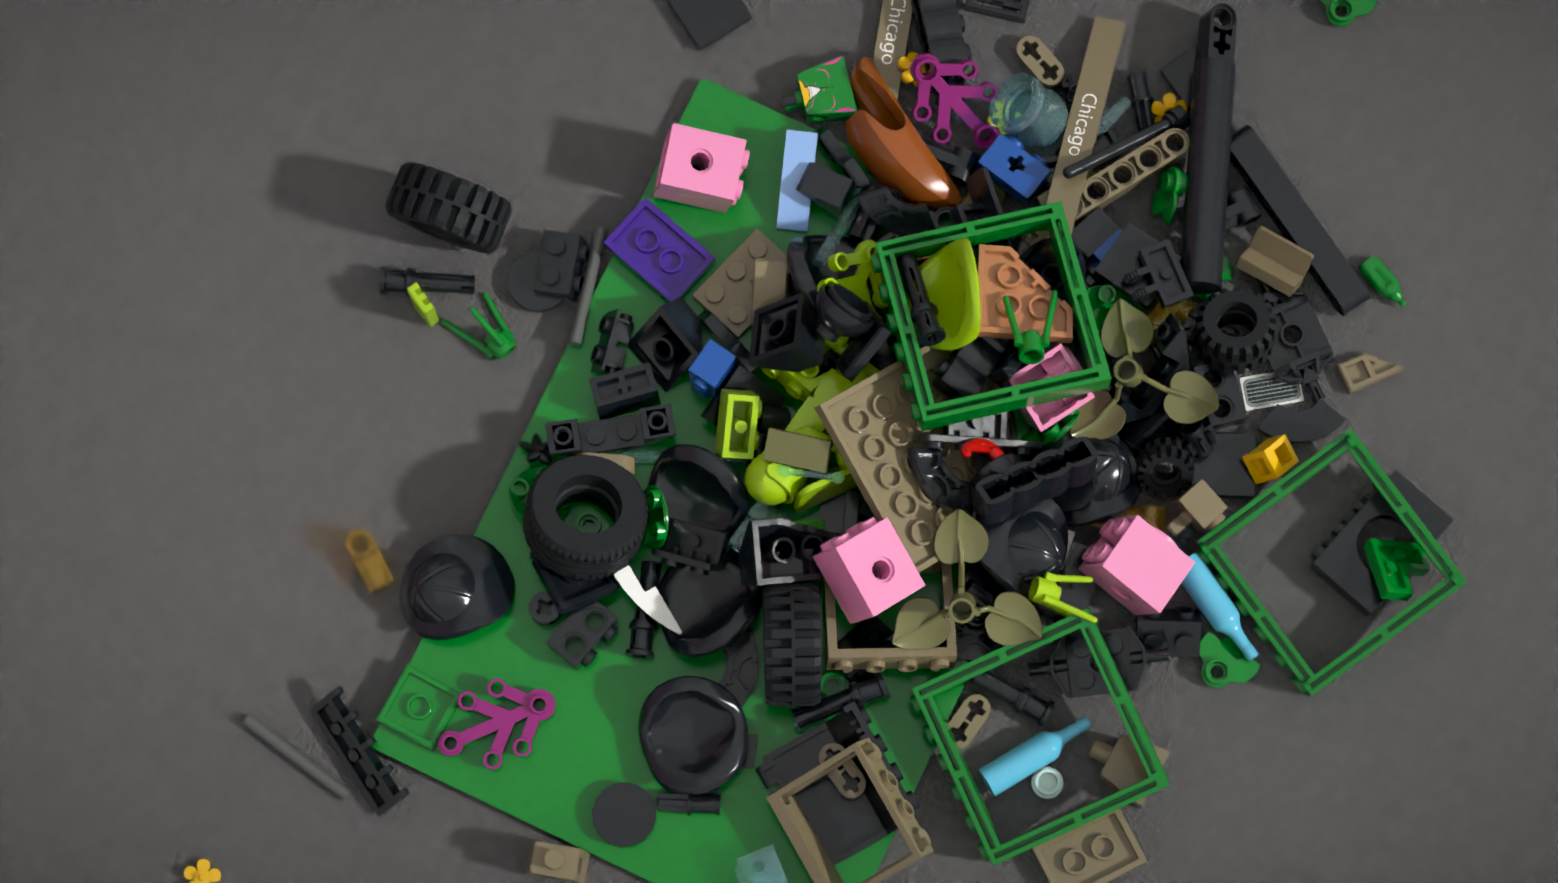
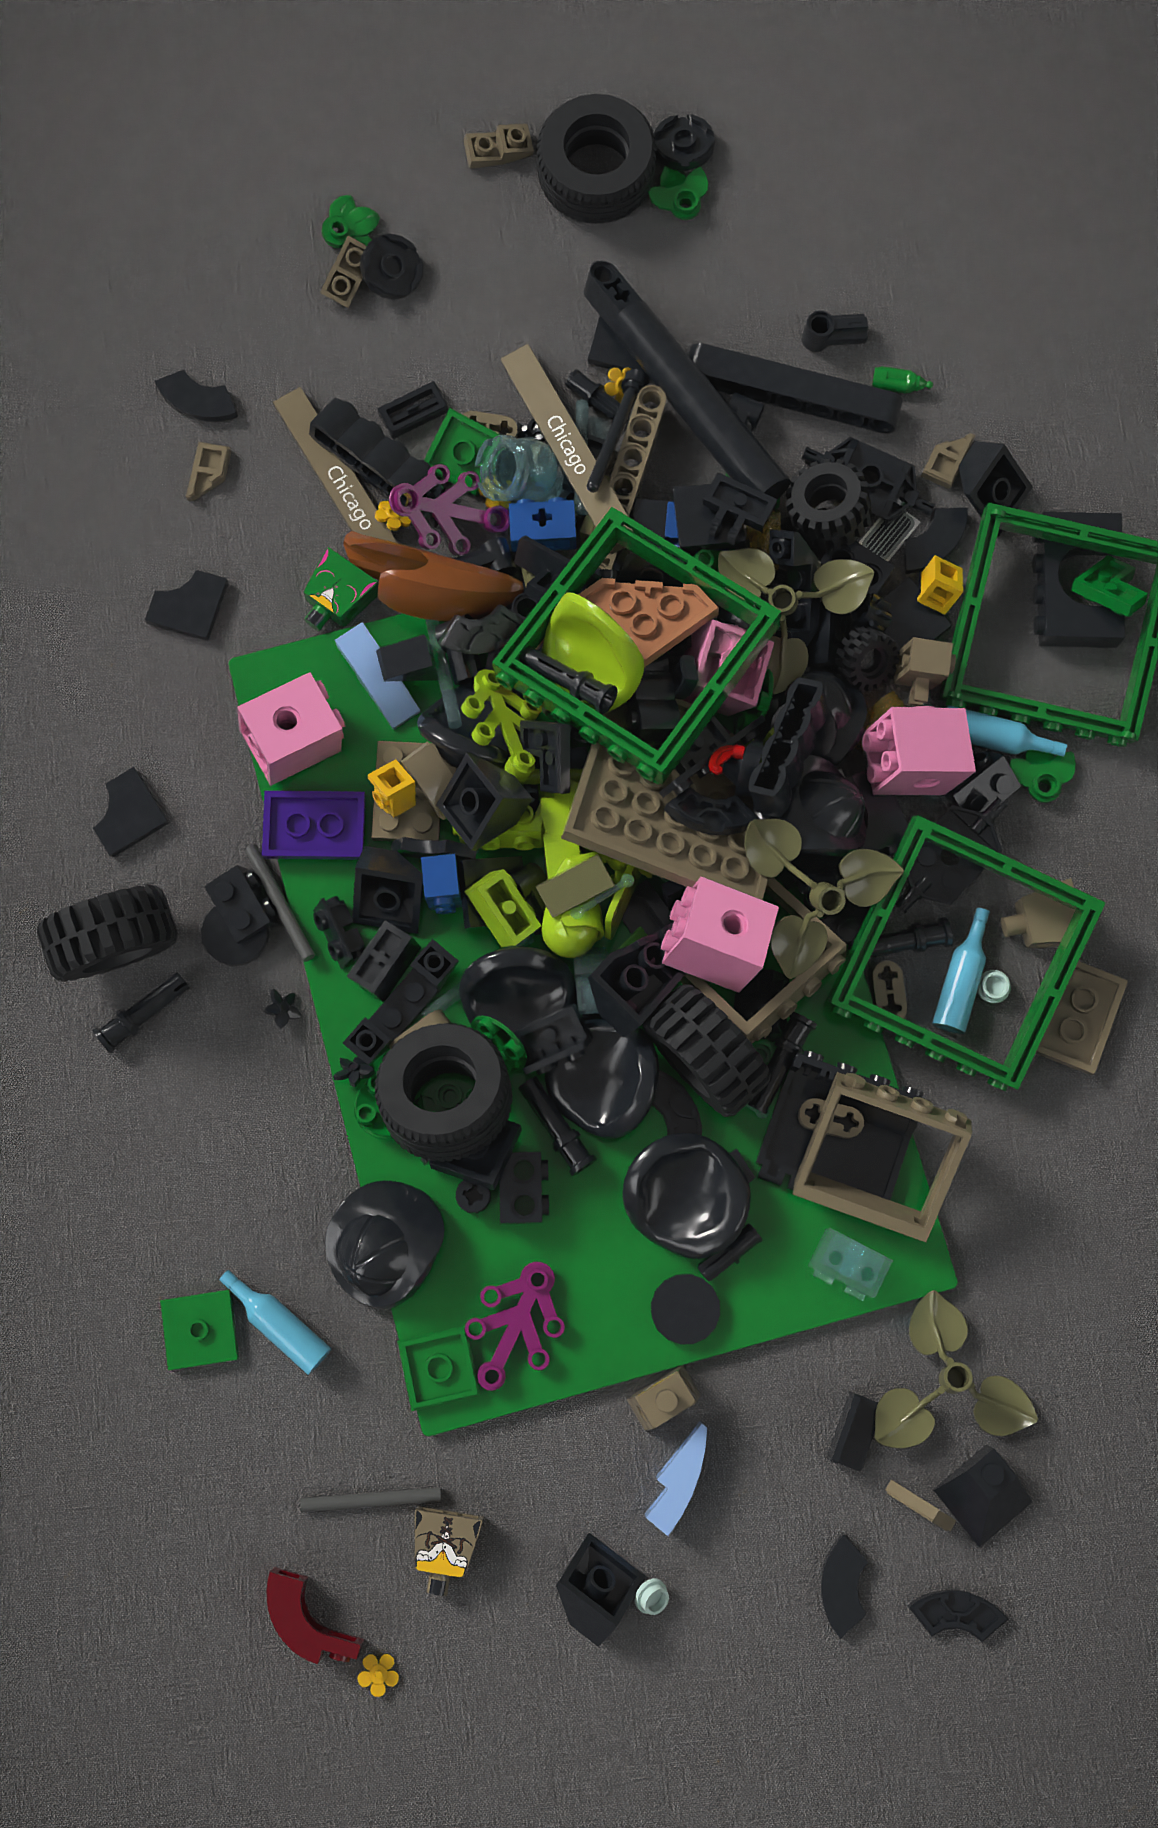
camera: 40 degrees left, 0 degrees up
(175, 795) = (297, 1626): none -> dark red arch
(279, 540) = (199, 1329): none -> green plate
(320, 830) = (444, 1545): none -> torso
(336, 584) = (279, 1325): none -> medium azure piece
(357, 753) = (419, 1451): black hinge -> none
(370, 563) = (293, 1283): clear yellow piece -> none
(422, 305) = (154, 1032): lime tile -> none
(499, 343) = (244, 1009): green plant -> none
(526, 364) = (282, 1008): none -> black plant
(538, 132) = (130, 813): none -> black tile
(649, 601) = (555, 1115): white sticker -> none
(734, 273) = (389, 792): none -> yellow brick
(841, 313) = (514, 743): black piece -> none
(842, 157) = (392, 626): black tile -> none
(1005, 56) = (458, 446): none -> green tile
(1030, 343) = (688, 638): green plant -> none
(1047, 593) = (876, 831): lime plant -> none
(1170, 185) = (679, 445): green plate -> none
(1275, 261) = (807, 429): dark tan panel -> none
(1369, 204) = (836, 330): none -> black piece
(1380, 415) = (993, 477): none -> black slope

